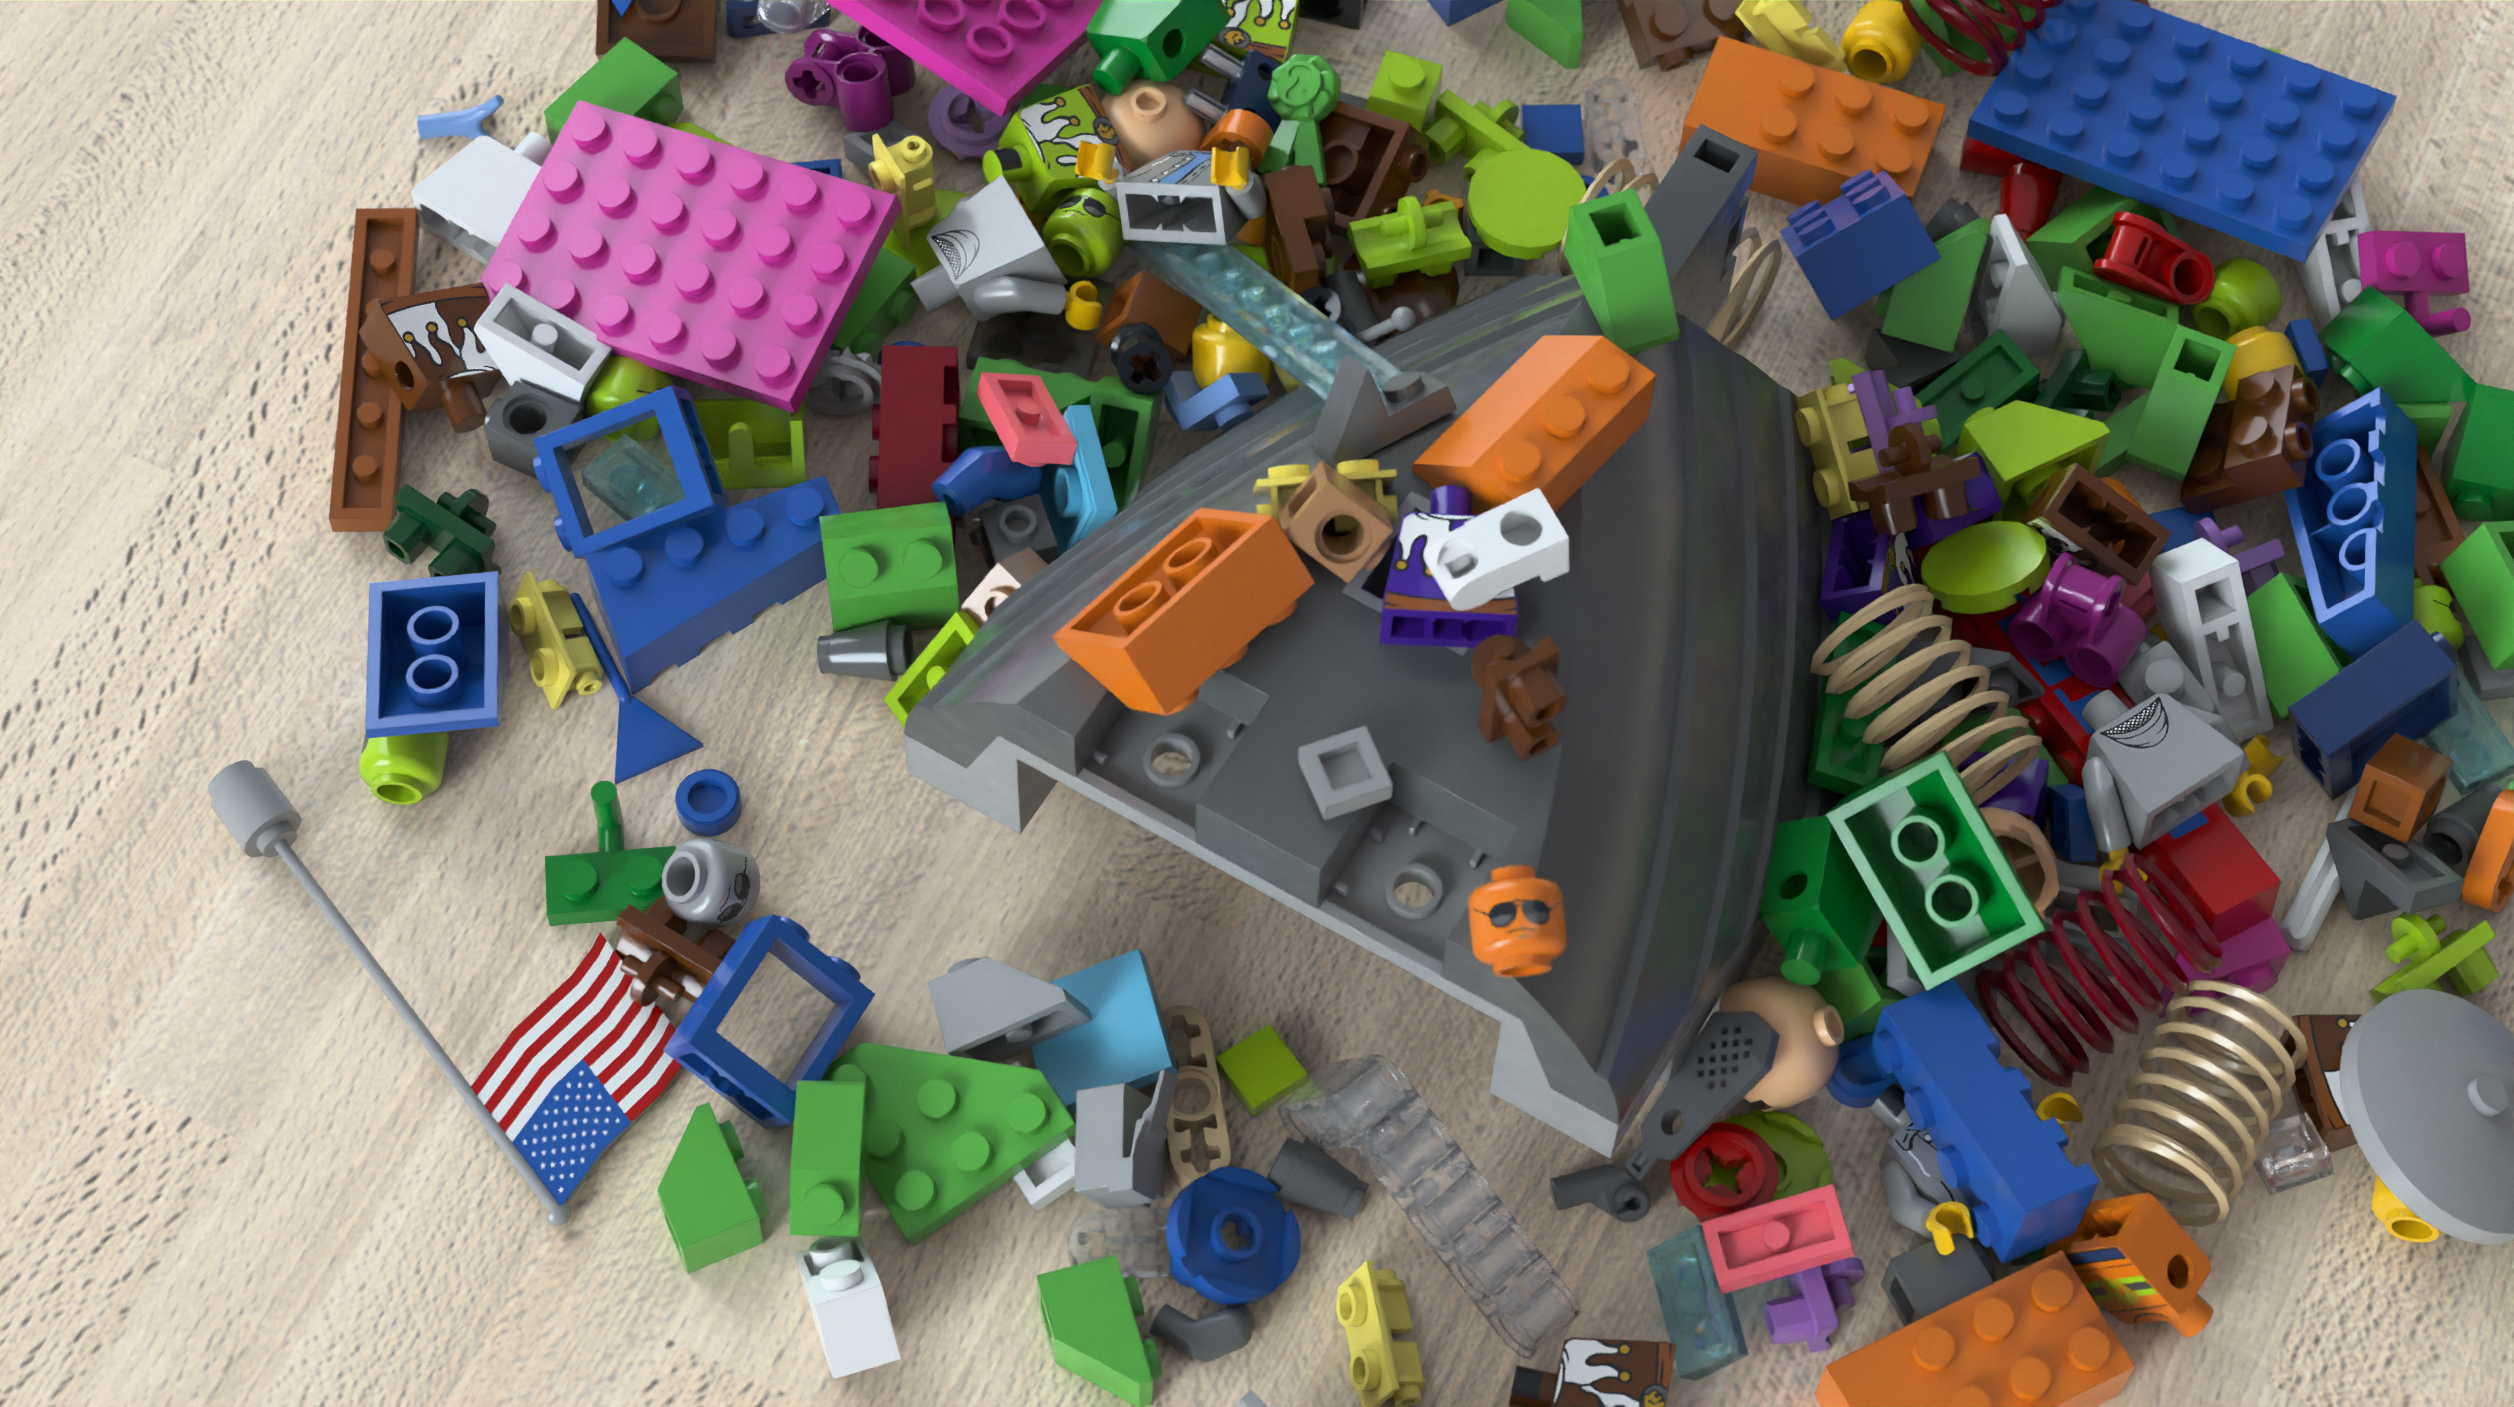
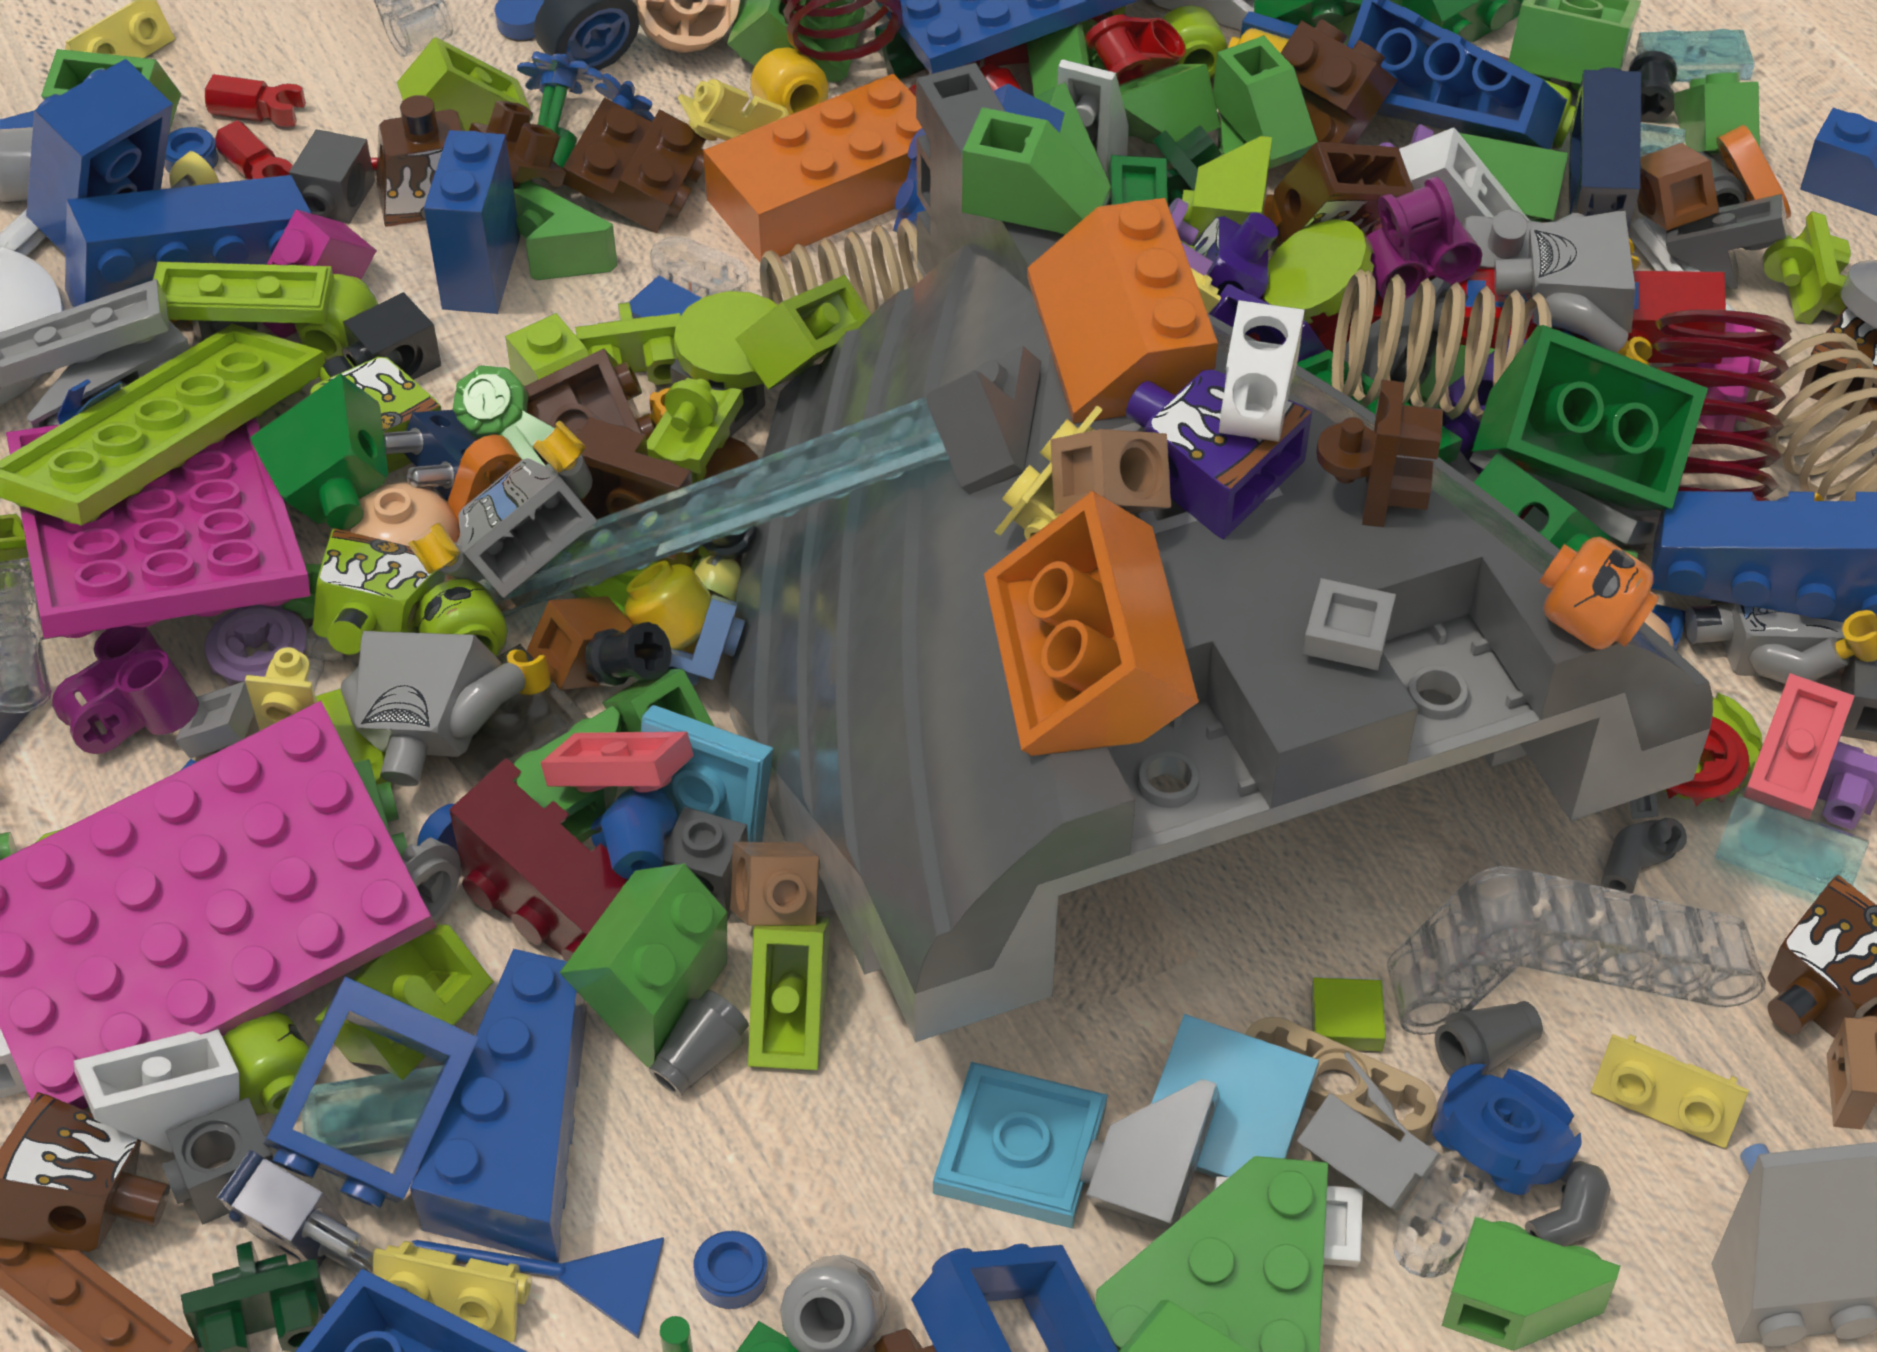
camera: 50 degrees left, 10 degrees down
(515, 502) = (290, 1214): none -> piece
(961, 912) = (1019, 1144): none -> medium azure tile
(1526, 240) = (802, 330): none -> lime slope
(1914, 473) = (1235, 245): reddish brown hips -> none

